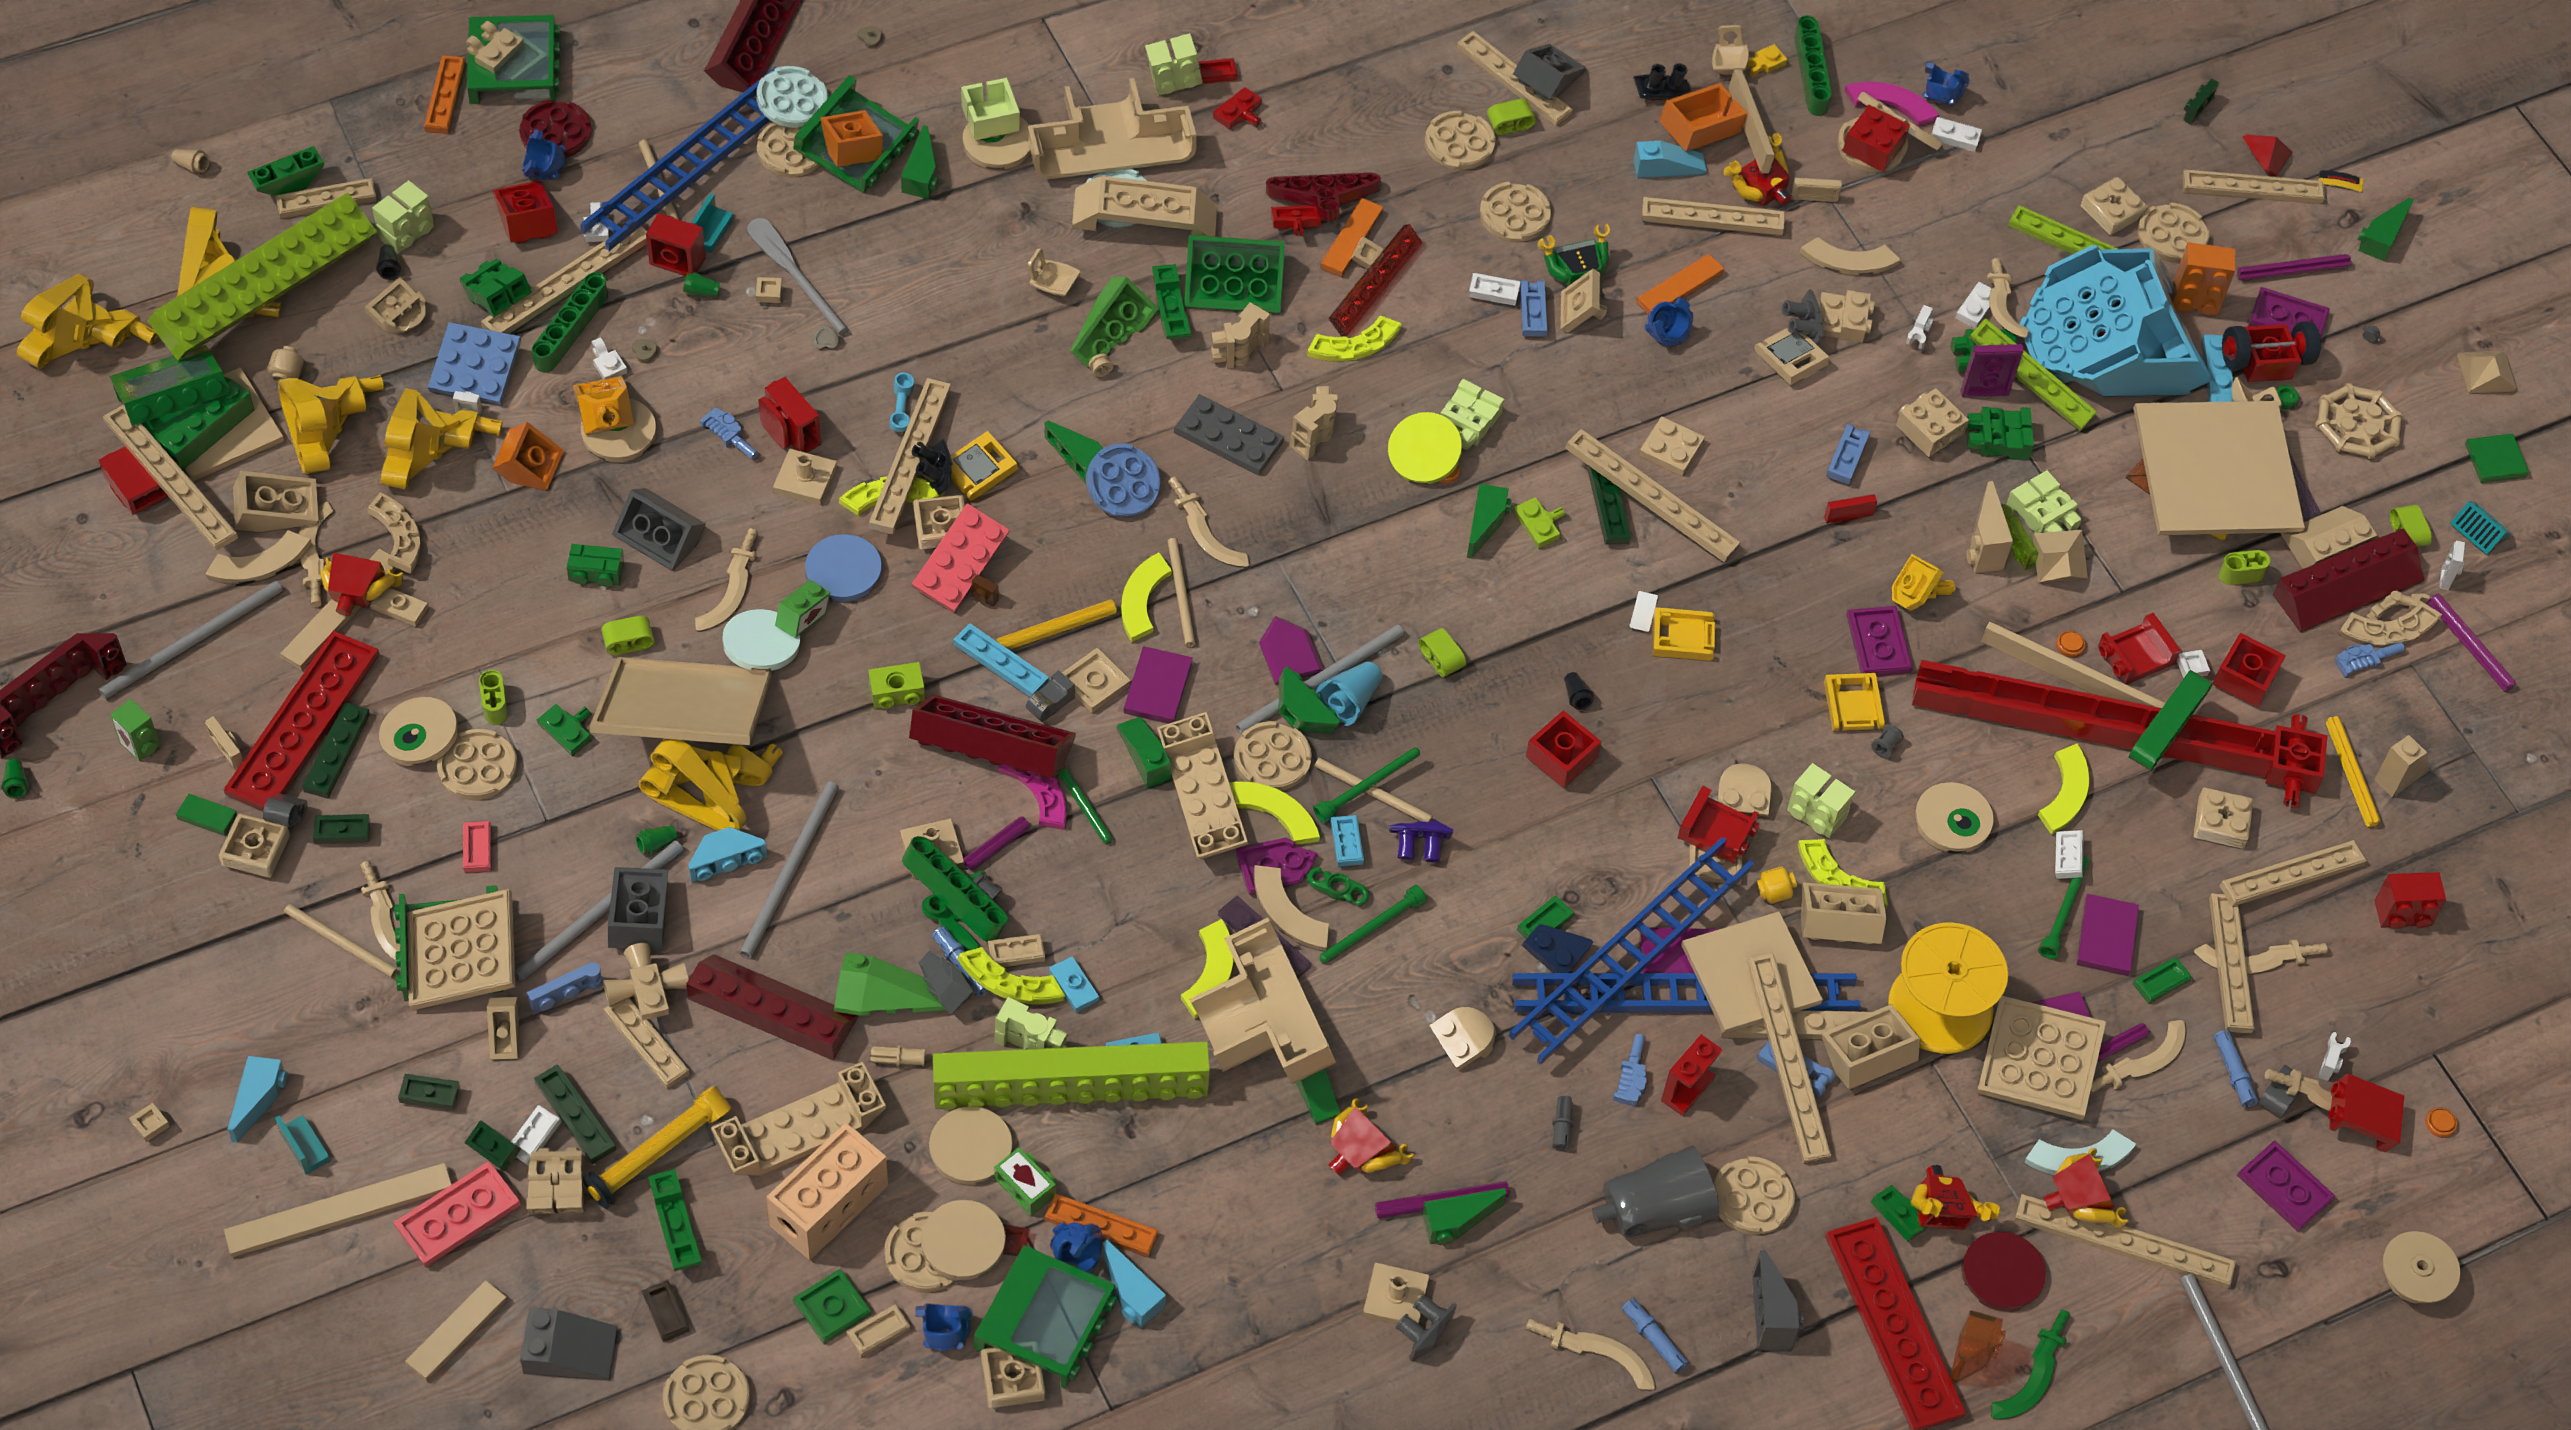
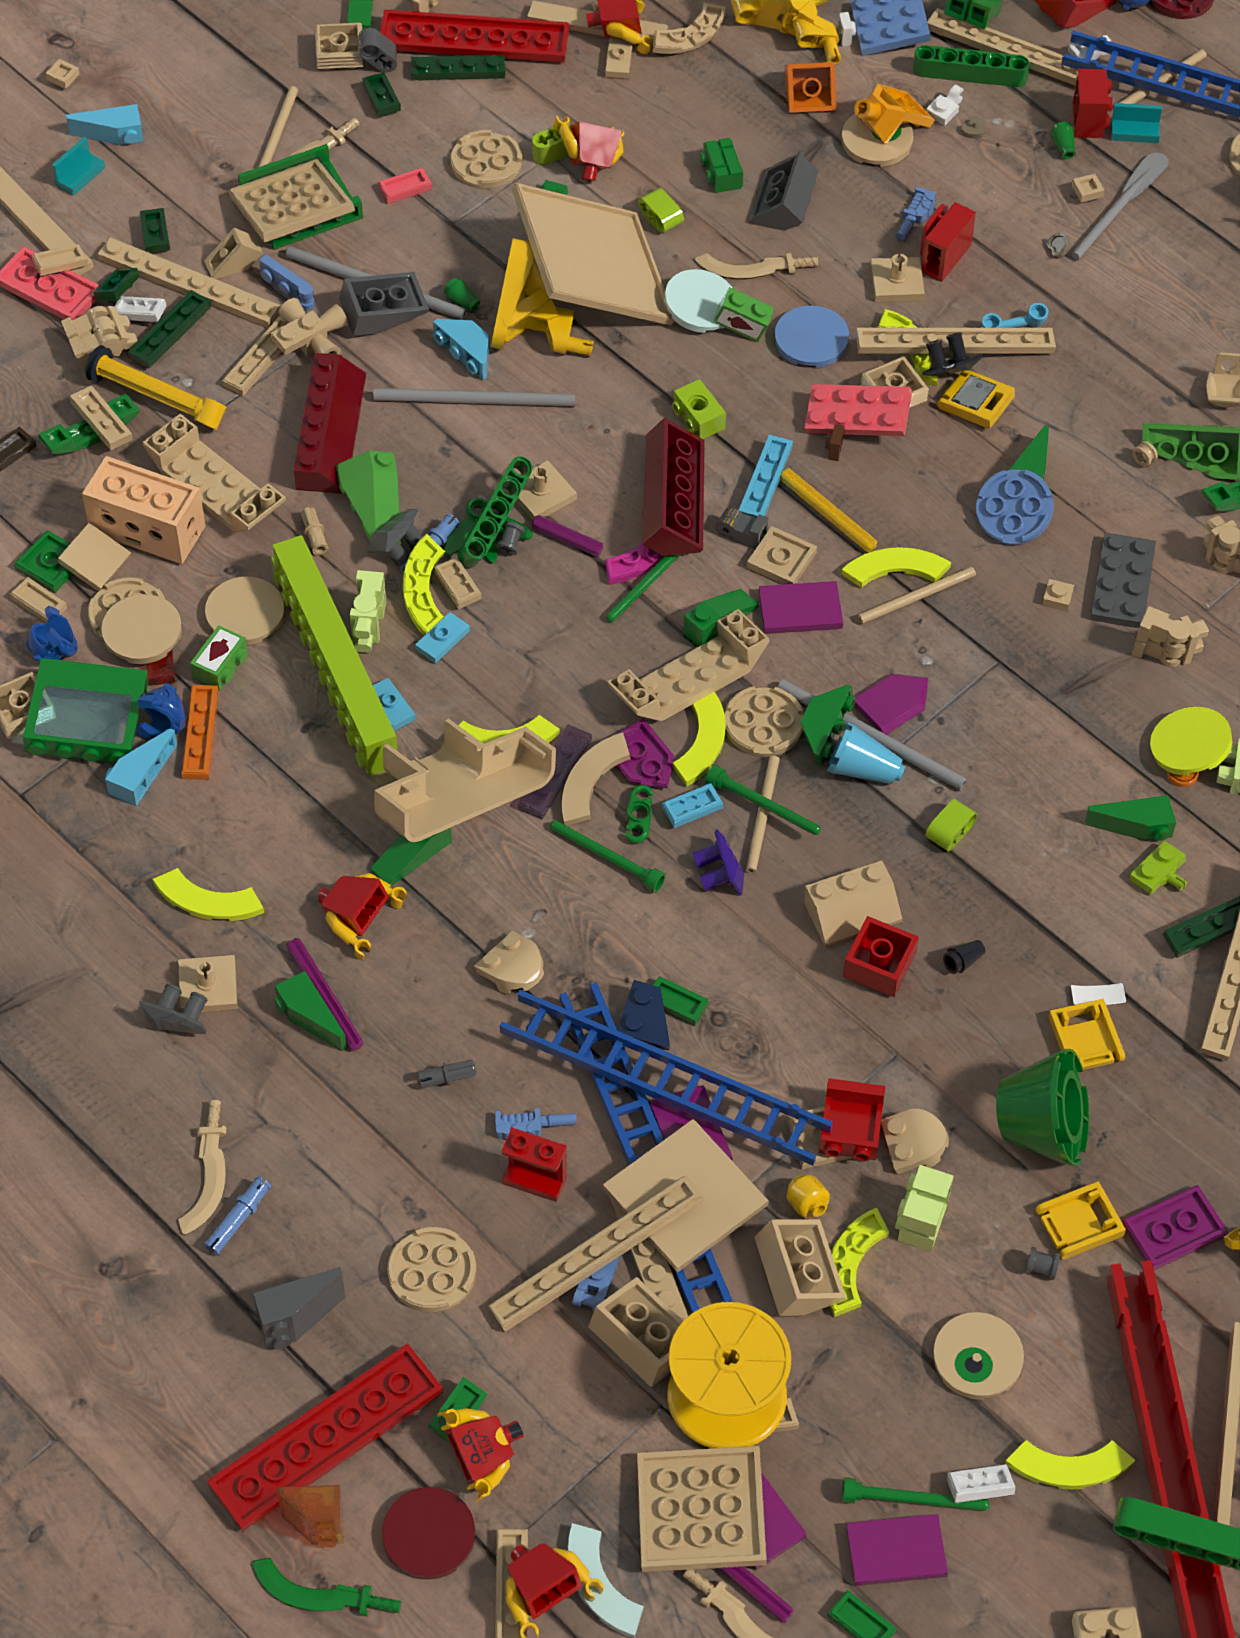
camera: 75 degrees right, 0 degrees up
(418, 731) = (497, 109): tan tile -> none
(434, 1190) = (59, 260): none -> tan tile
(512, 1081) = (184, 279): none -> tan plate
(522, 662) = (590, 145): none -> torso
(673, 1206) = (101, 417): none -> tan plate
(850, 1261) = (94, 557): none -> tan tile
(1200, 529) = (998, 589): tan sword -> none
(1225, 487) = (1058, 594): none -> tan plate
(1303, 1275) = (206, 903): none -> neon yellow tile
(1497, 753) = (845, 900): none -> tan slope
(1660, 1195) = (390, 1176): dark grey torso -> none
(1762, 679) = (1046, 1108): none -> green cone

